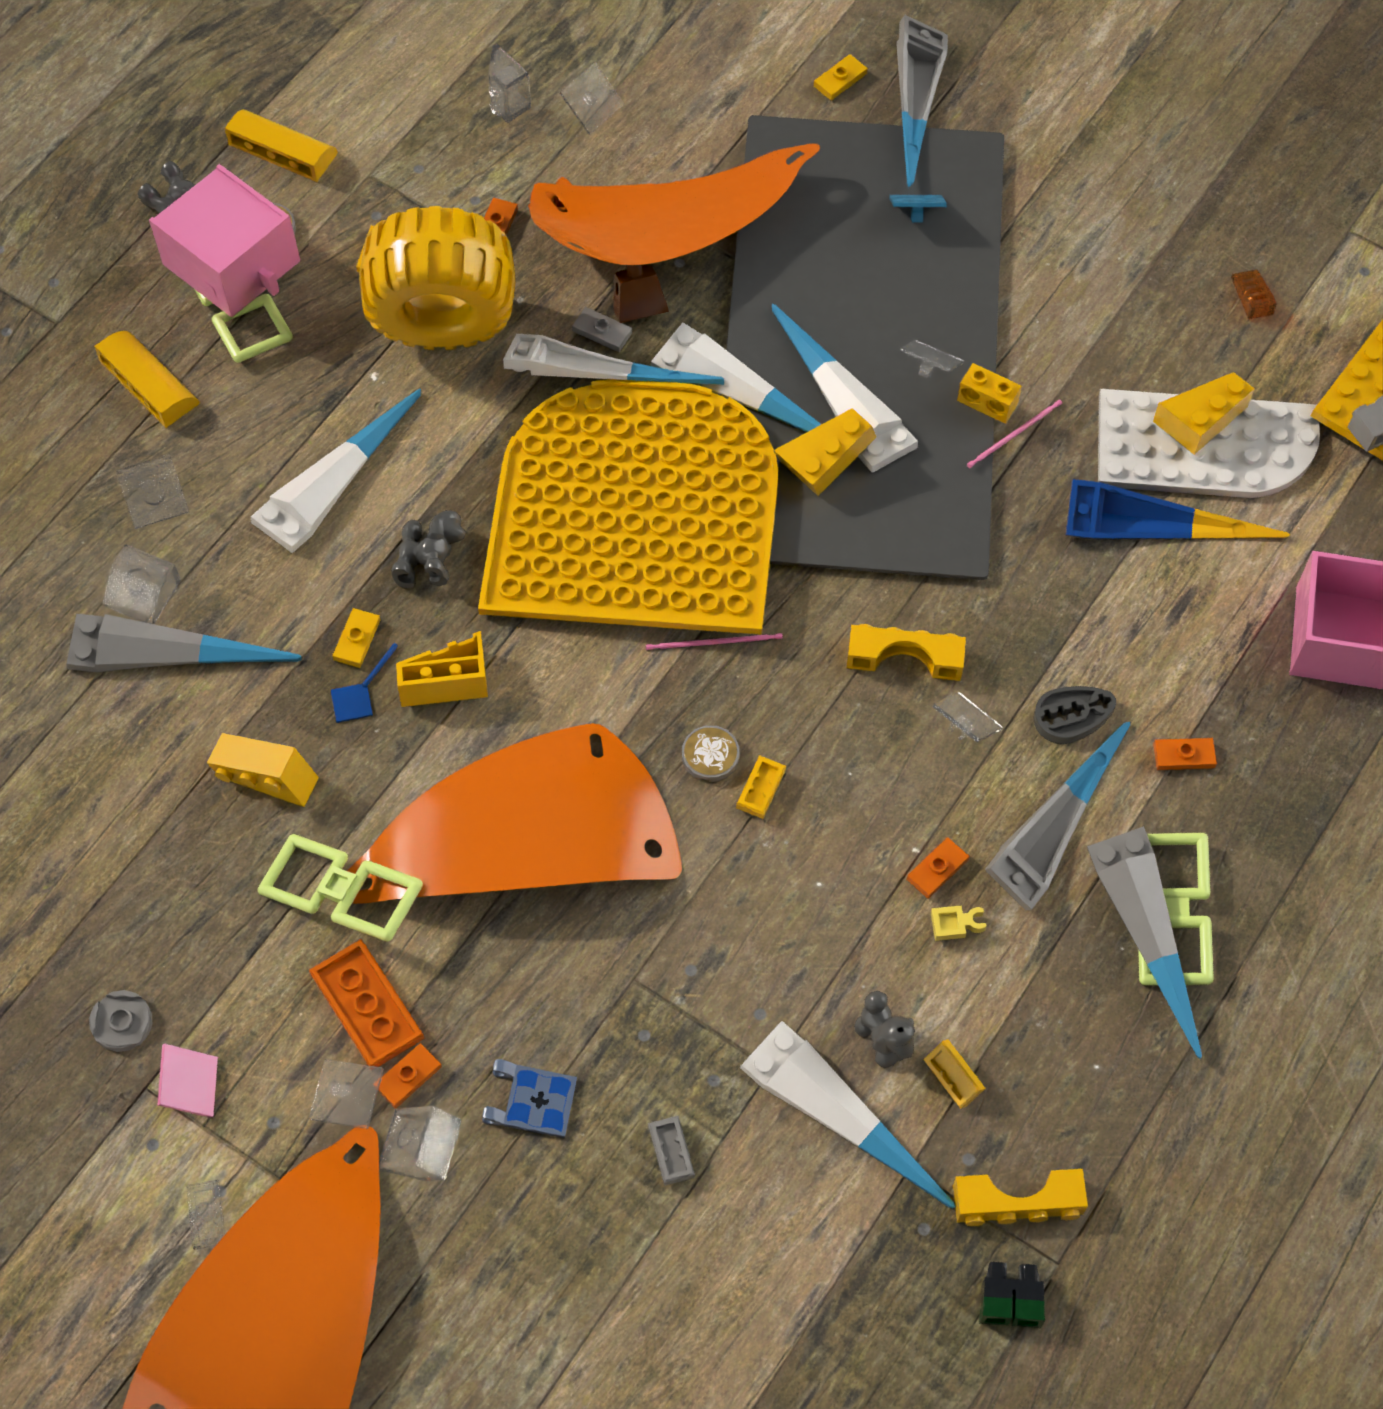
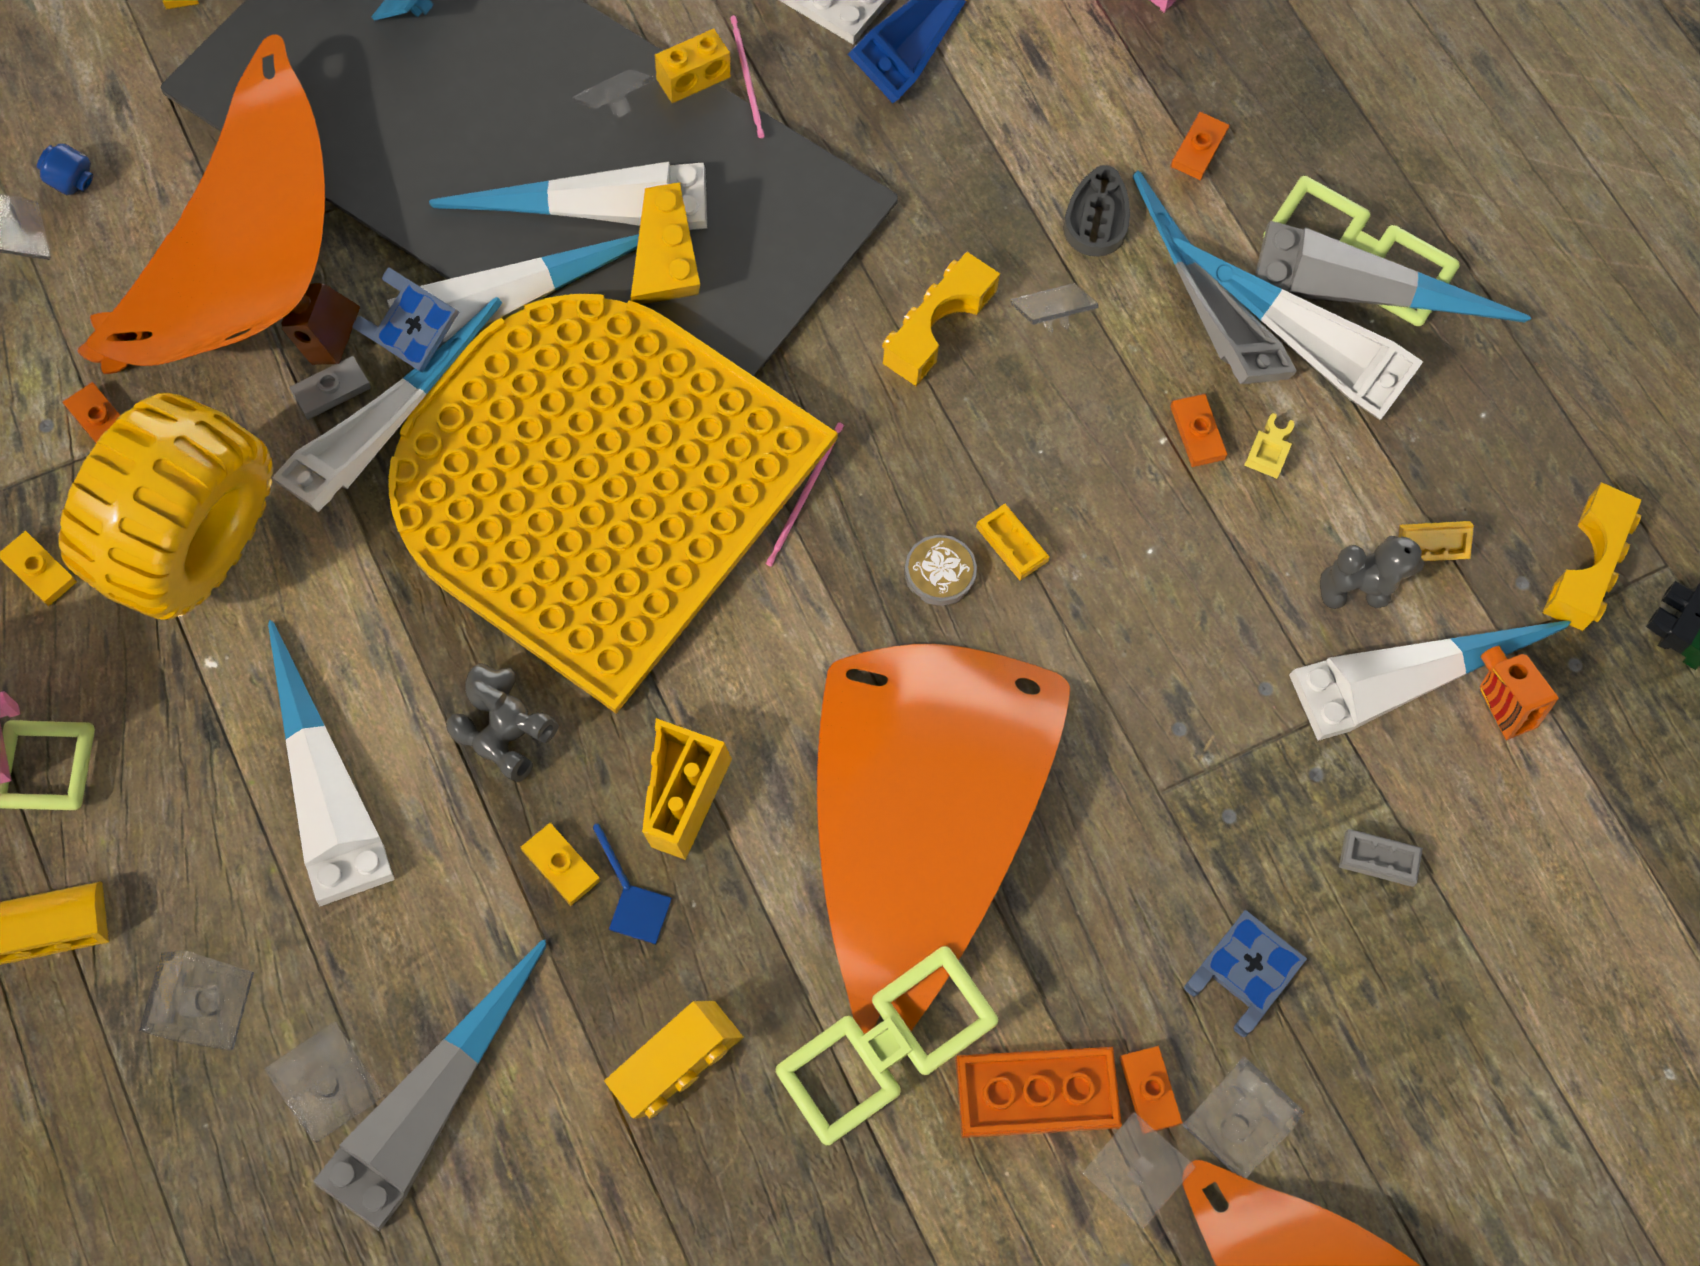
camera: 65 degrees left, 5 degrees up
(652, 102) = (65, 169): none -> blue head
(672, 343) = (412, 324): none -> sand blue flag
(859, 1182) = (1515, 692): none -> orange torso
(1070, 940) = (1351, 358): none -> white plate

